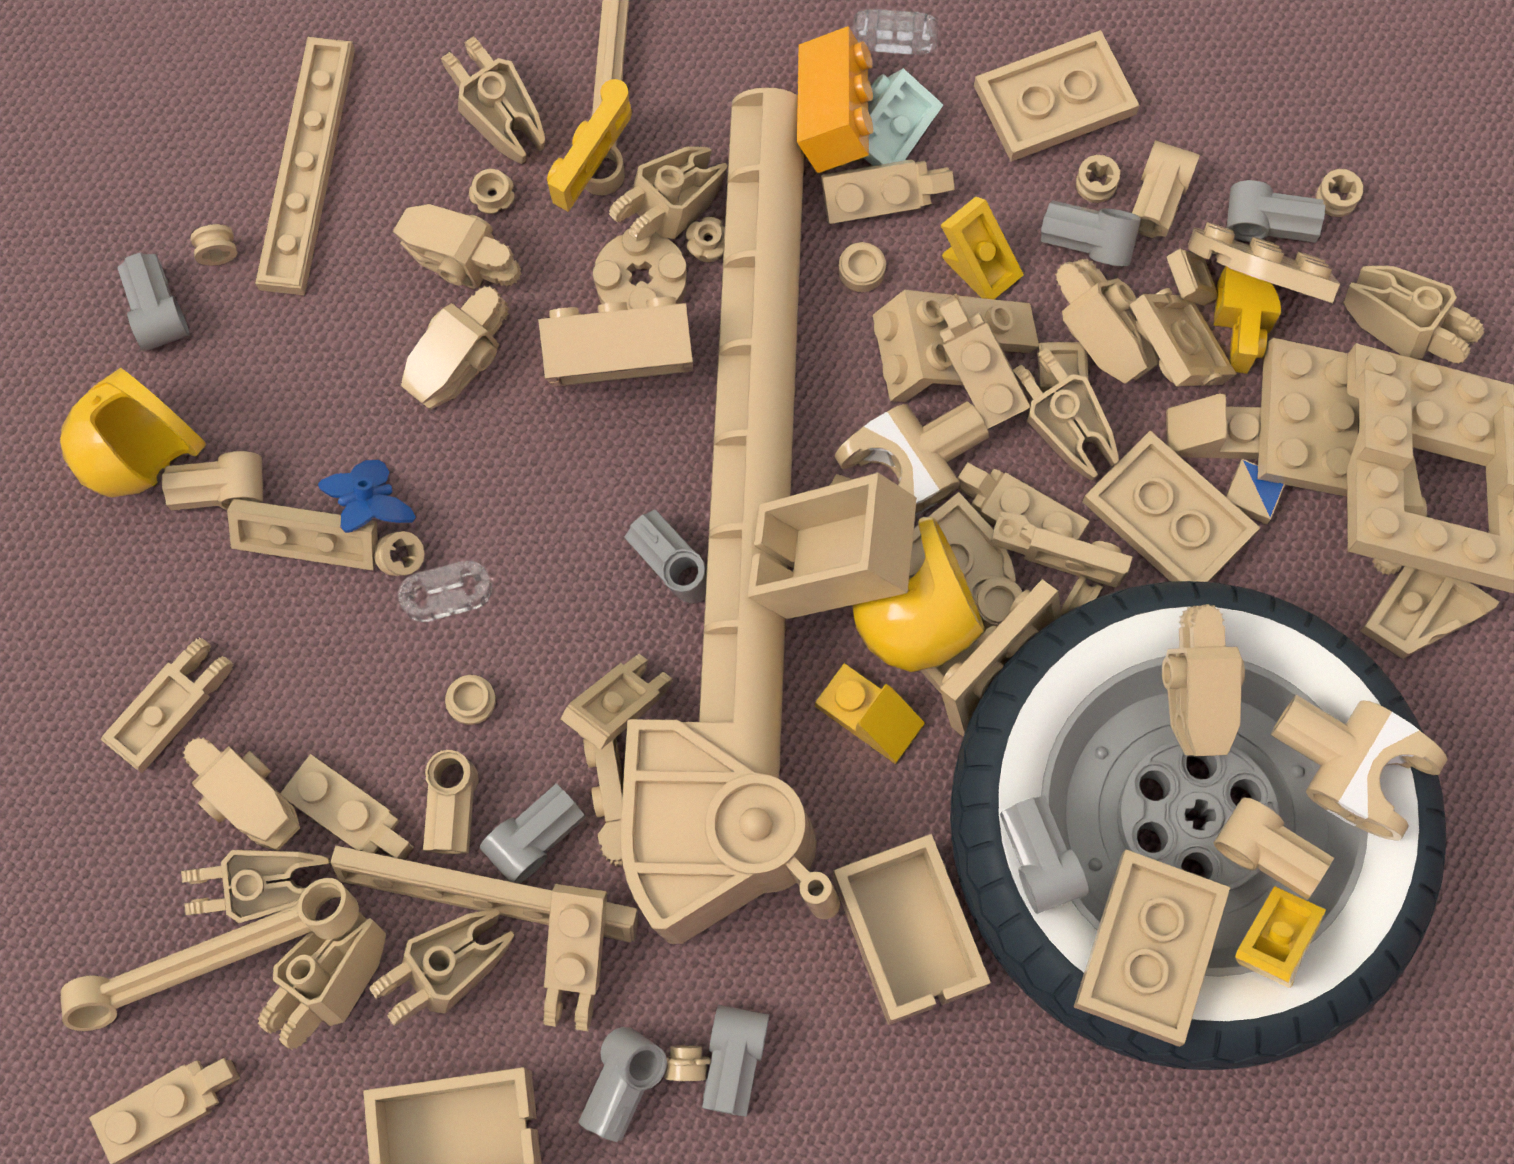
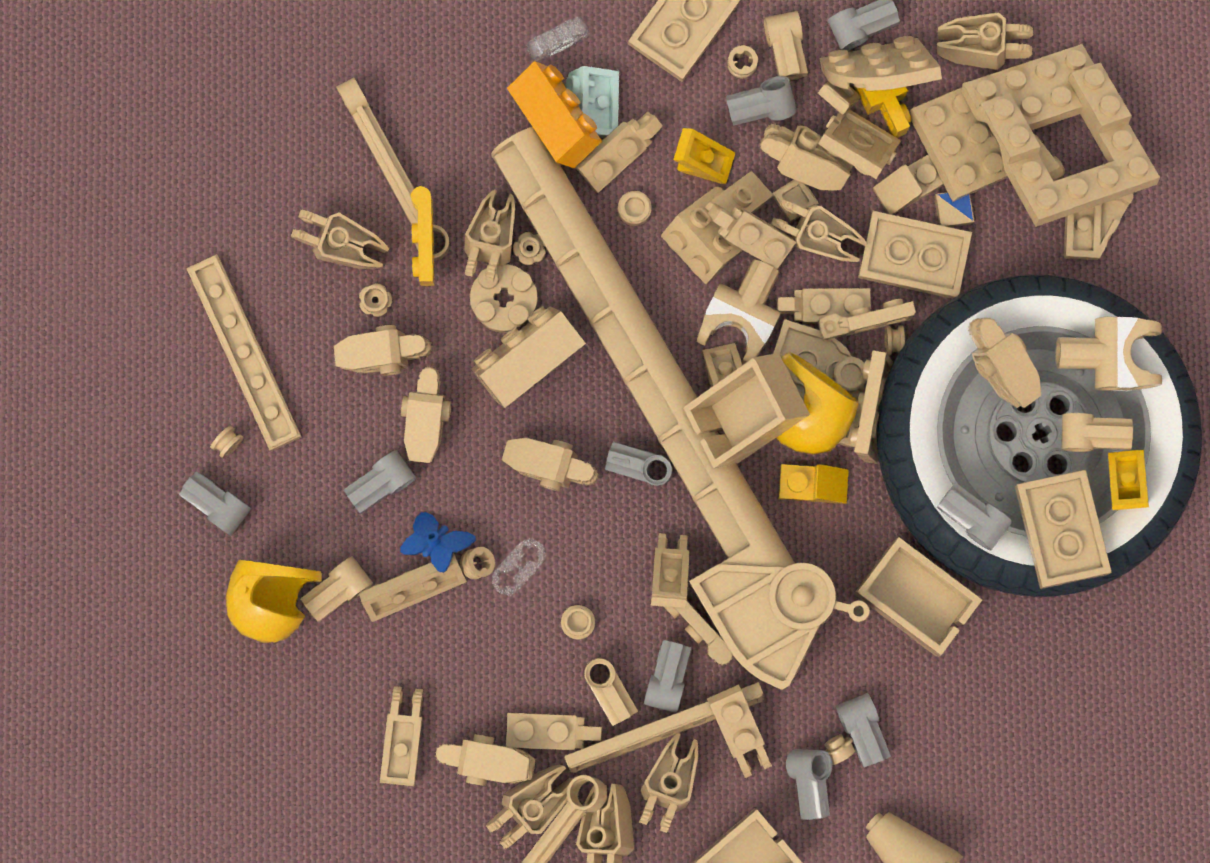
camera: 35 degrees left, 10 degrees up
(366, 392) = (387, 477): none -> light grey piece
(562, 488) = (550, 463): none -> tan hinge

